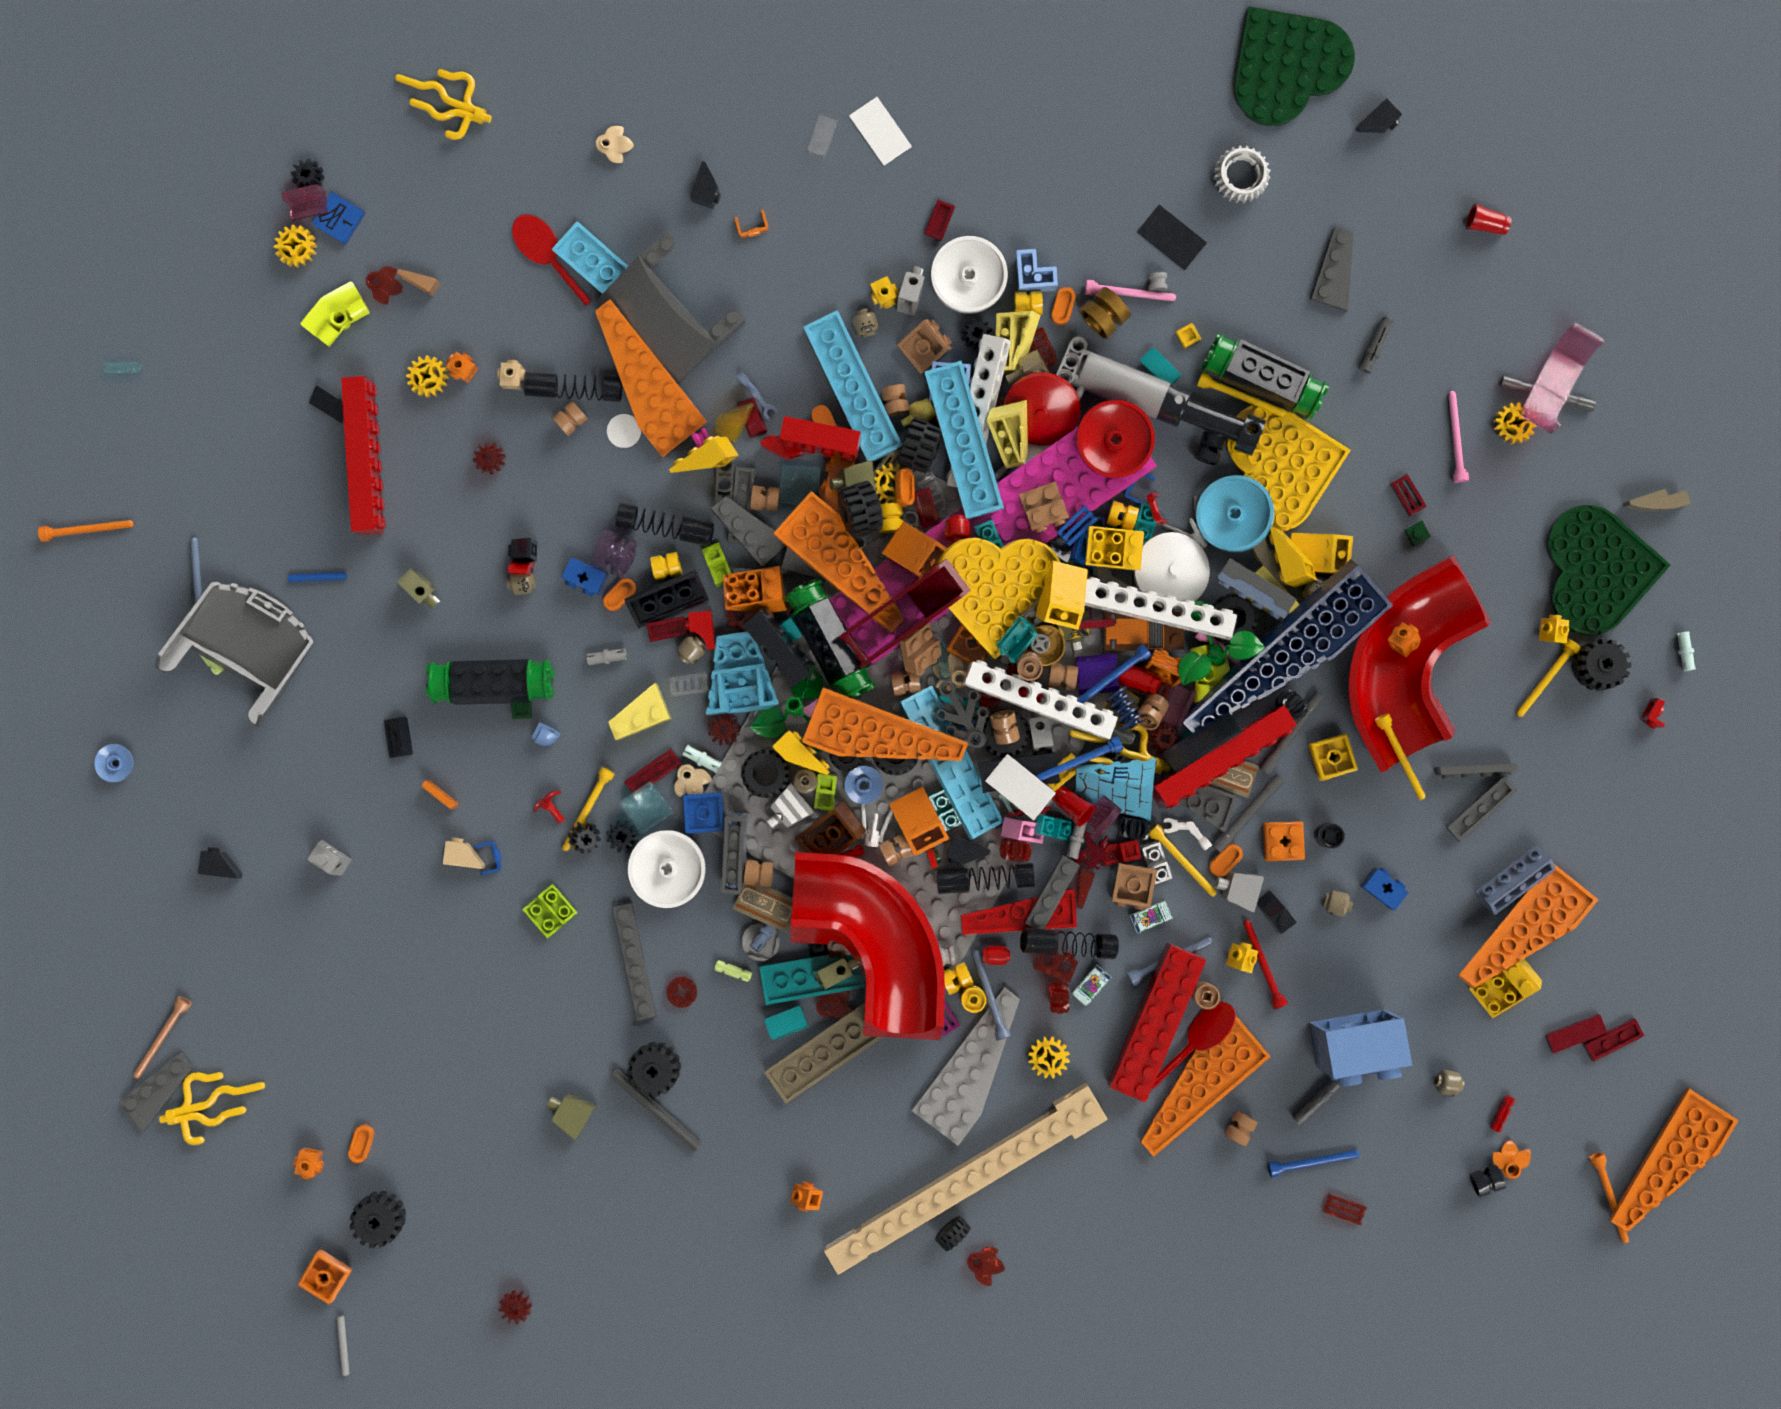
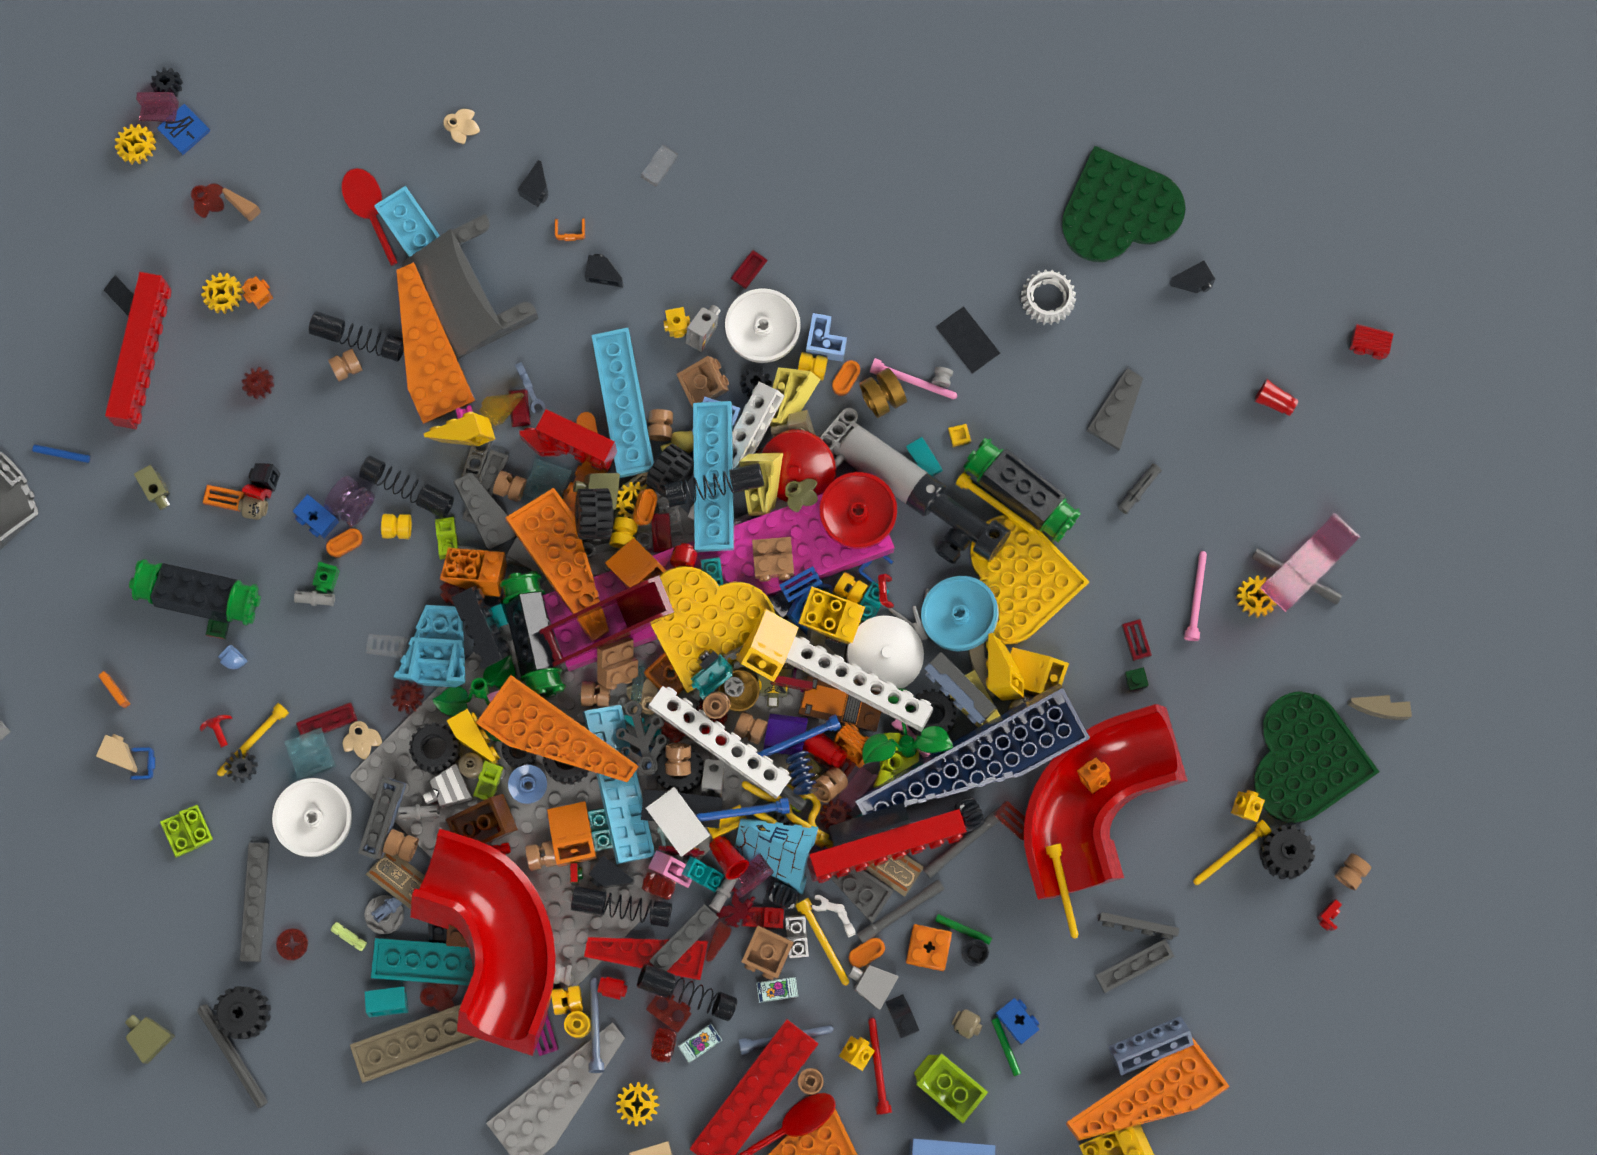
camera: 15 degrees right, 10 degrees down
(323, 316) = (162, 205): neon yellow panel -> none
(398, 737) = (91, 624): black slope -> none
(465, 109) = (331, 61): yellow plant -> none
(487, 588) = (222, 490): none -> orange tile
(512, 381) = (301, 311): tan brick -> none
(617, 628) = (332, 575): none -> green brick
(623, 431) = (393, 390): white sticker -> none
(625, 830) = (281, 767): black gear -> none
(641, 714) = (330, 661): light yellow wedge -> none
(666, 599) = (388, 557): black slope -> none
(667, 629) = (380, 586): dark red tile -> none
(691, 649) = (397, 612): dark tan head -> none
(701, 758) = (377, 719): light aqua pin -> none
(703, 625) = (416, 591): red arch -> none
(703, 812) = (363, 772): blue tile -> none
(767, 837) = (418, 811): none -> light grey pin
(796, 259) = (601, 271): none -> black slope
(828, 976) = (439, 962): olive torso -> none
(865, 323) = (651, 346): dark tan head -> none
(872, 837) = (521, 837): white plant -> none
(880, 131) = (715, 174): white sticker -> none
(994, 437) = (741, 478): none -> black piece
(1007, 623) = (706, 658): none -> black plate
(1053, 358) = (817, 425): clear red slope -> none
(1056, 437) = (801, 494): none -> olive plate
(1311, 815) = (963, 929): none -> green bar
(1321, 752) = (1007, 867): yellow brick -> none
(1335, 966) = (949, 1086): none -> lime slope
(1347, 706) = (1007, 814): none -> clear red tile
(1378, 914) = (1006, 1047): none -> green bar
(1567, 139) = (1371, 342): none -> red brick
(1667, 667) = (1354, 869): none -> medium nougat wheel
(1686, 651) = (1376, 861): light aqua pin -> none

